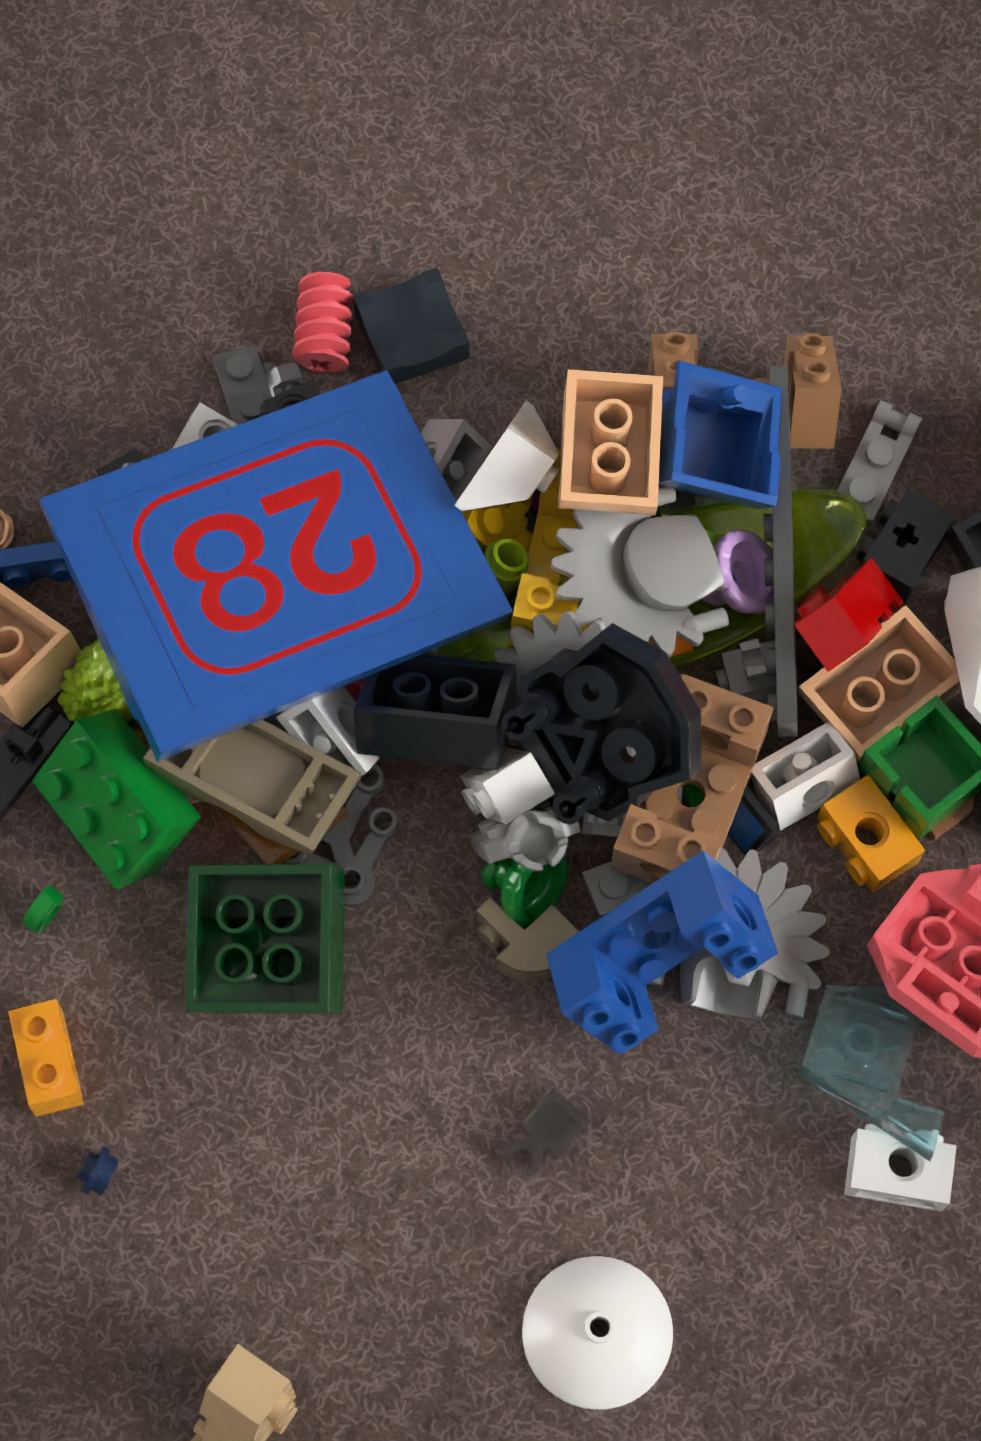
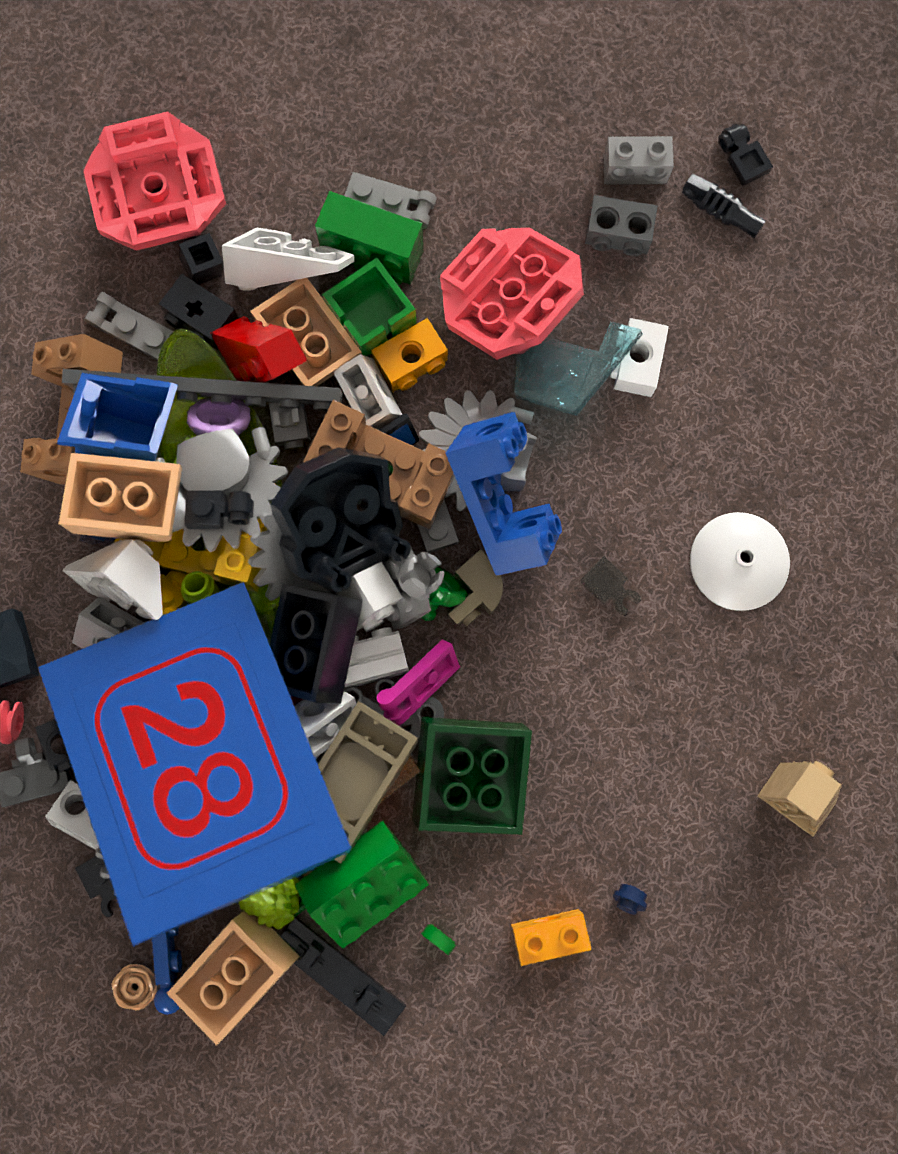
camera: 85 degrees left, 10 degrees up
(390, 862) = (419, 683): none -> dark pink plate
(424, 805) = (376, 658): none -> white brick
(606, 555) = (209, 508): none -> black plate

